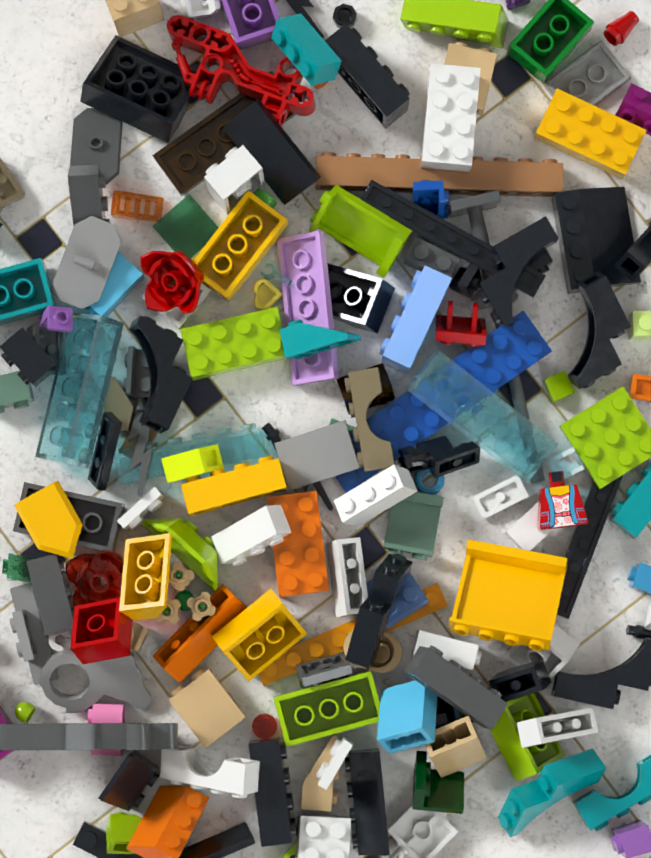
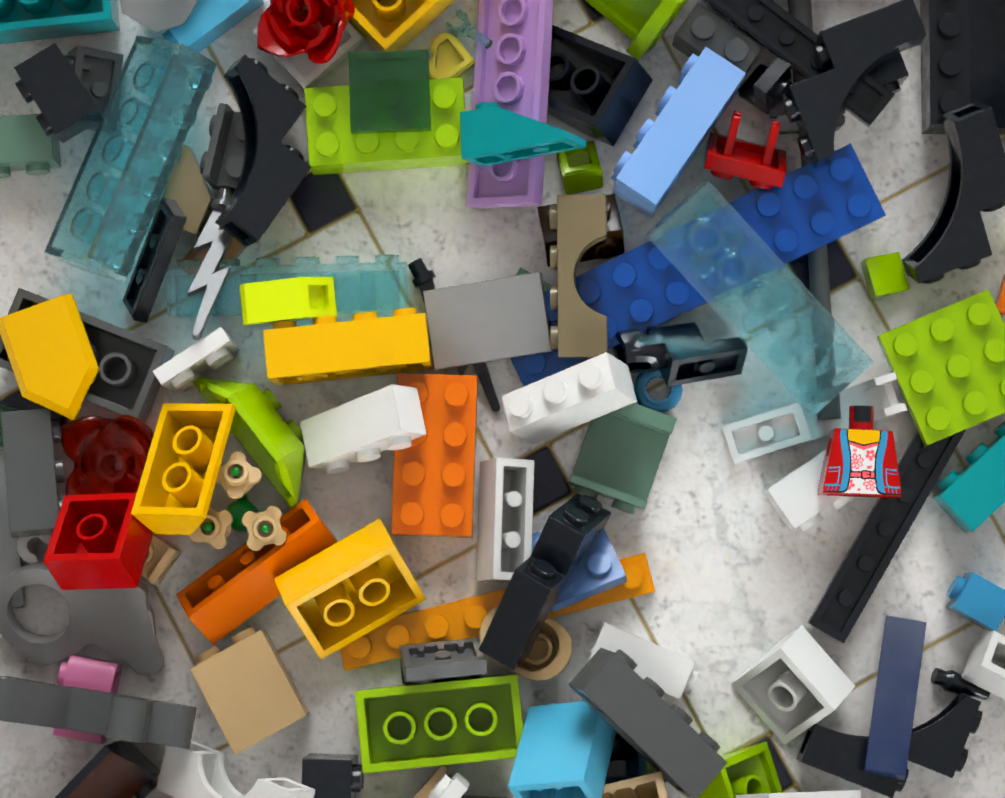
camera: 10 degrees right, 0 degrees up
(57, 319) = (114, 40): medium lavender bracket -> none
(234, 323) = (389, 91): none -> clear green tile
(264, 726) = (335, 734): clear red plate -> none
(360, 351) = (580, 169): none -> lime slope
(508, 595) = (755, 590): yellow panel -> none
(521, 680) = (754, 728): black brick -> none
(605, 647) = (895, 697): none -> dark blue tile

